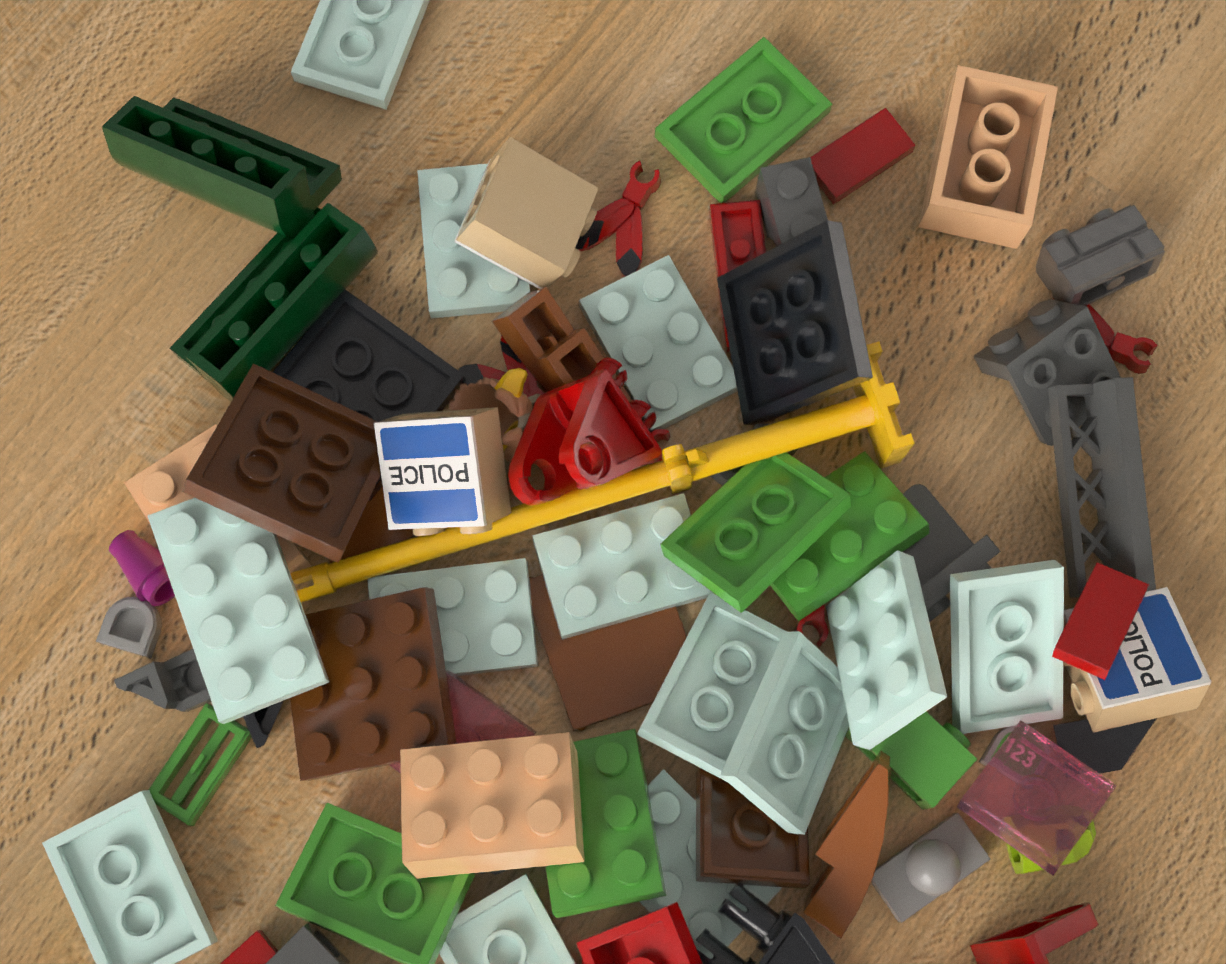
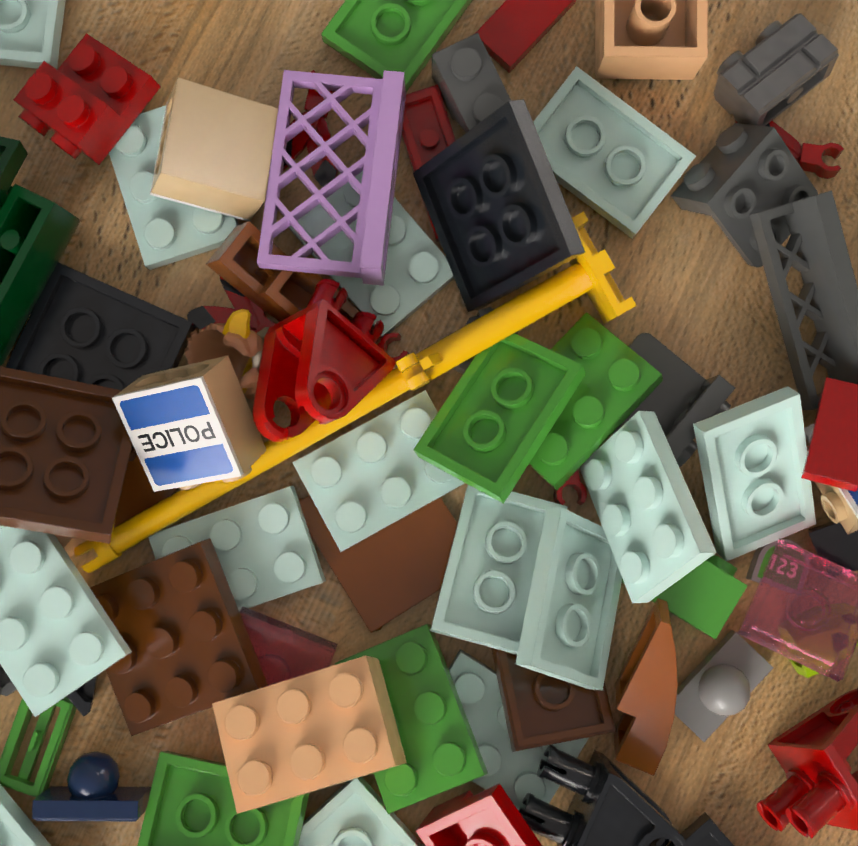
camera: 10 degrees left, 10 degrees up
(249, 821) = (92, 794): none -> dark blue tile
(411, 141) = (86, 99): none -> red plate
(676, 285) = (378, 176): none -> lavender fence
(918, 300) = (609, 152): none -> light aqua plate

